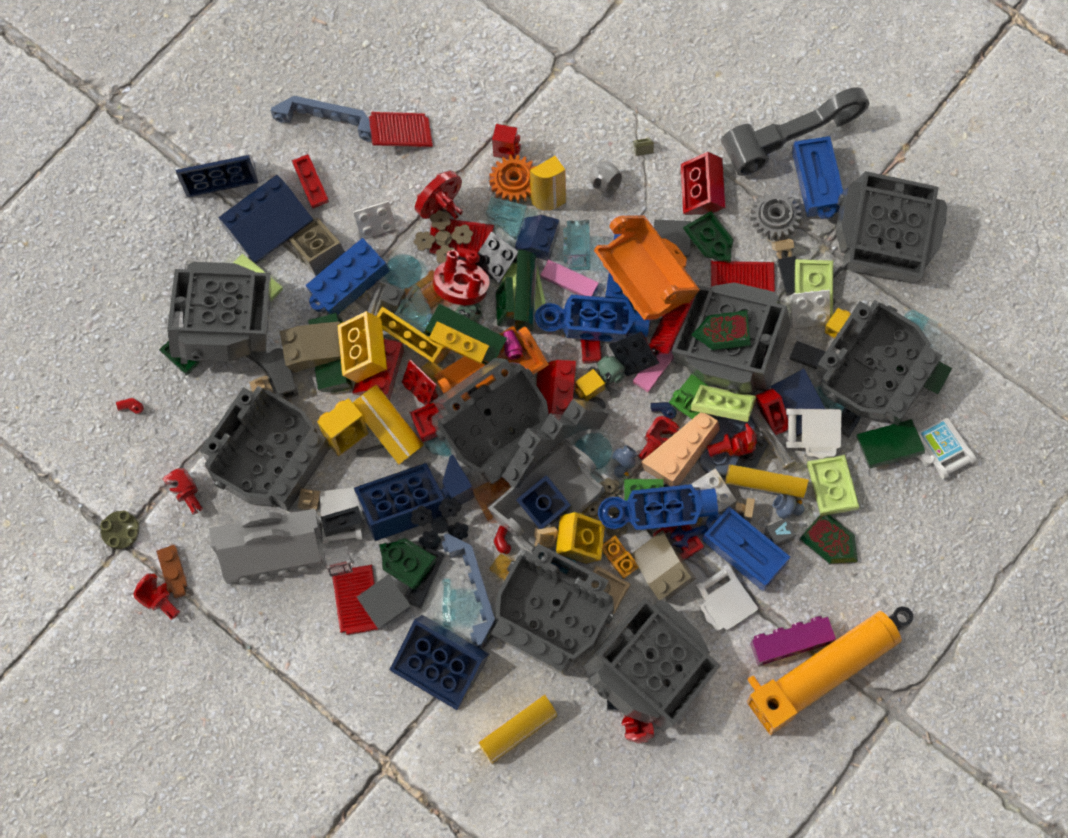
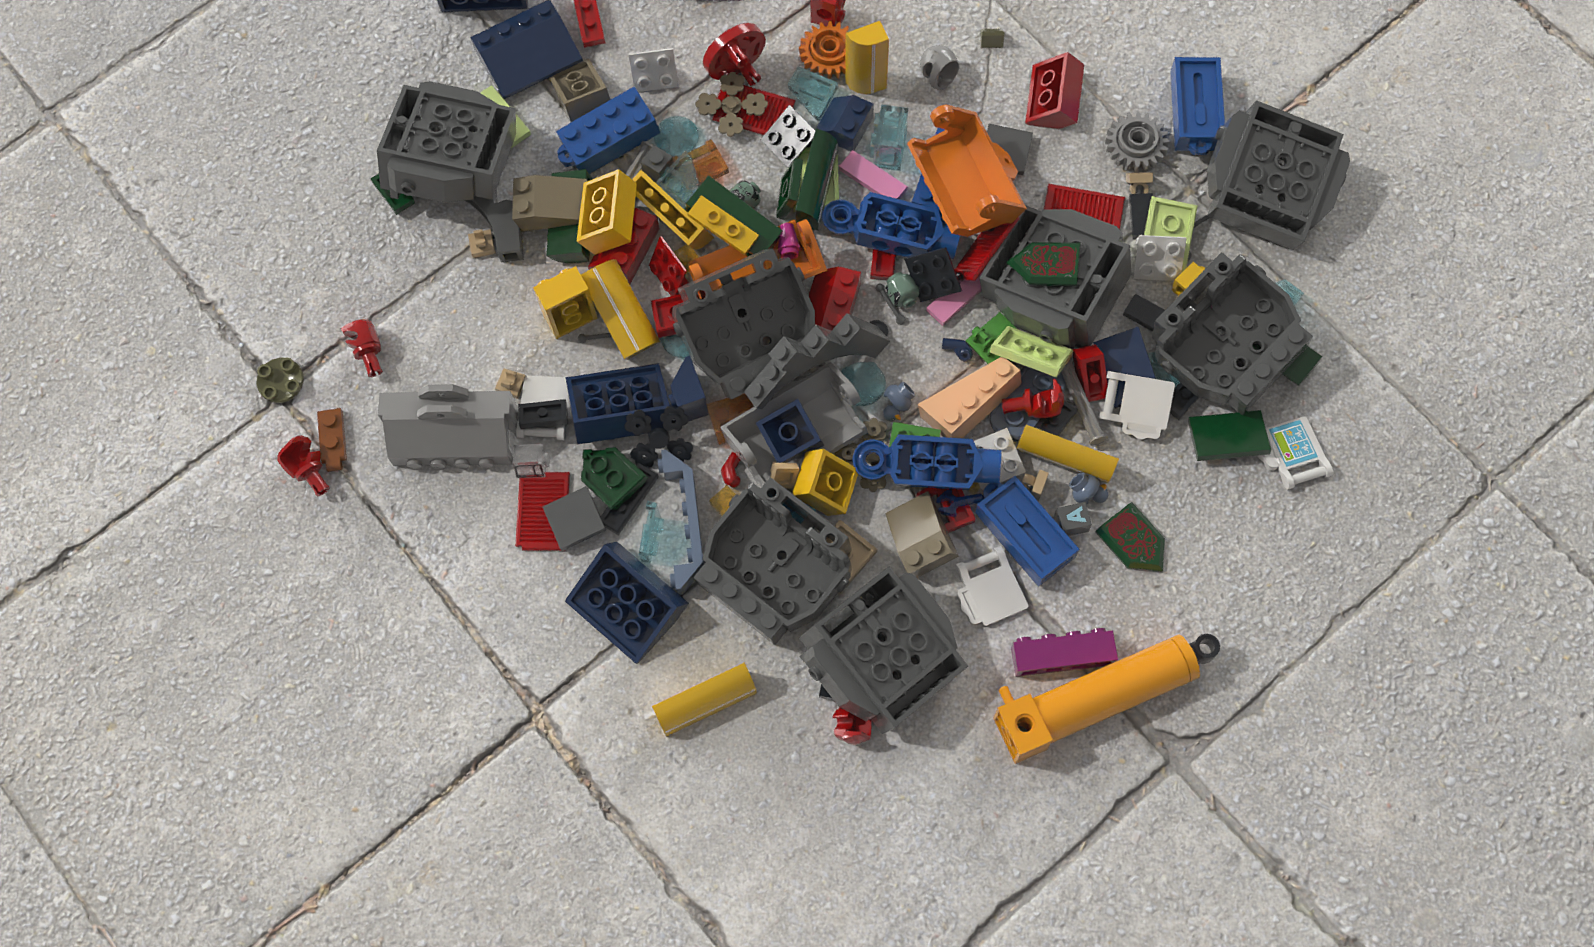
camera: 10 degrees right, 0 degrees up
(130, 403) = (325, 236): red arm -> none
(278, 427) = (473, 281): dark grey piece -> none
(460, 271) = (742, 156): red piece -> none
(470, 255) = (761, 131): red arm -> none
(589, 385) = (872, 304): yellow brick -> none
(619, 557) = (869, 514): light orange slope -> none
(659, 426) = (948, 367): red piece -> none
(710, 237) = (1053, 155): dark green tile -> none
(750, 148) = (1120, 57): dark grey piece -> none
(832, 485) = (1148, 473): yellowish green tile -> none

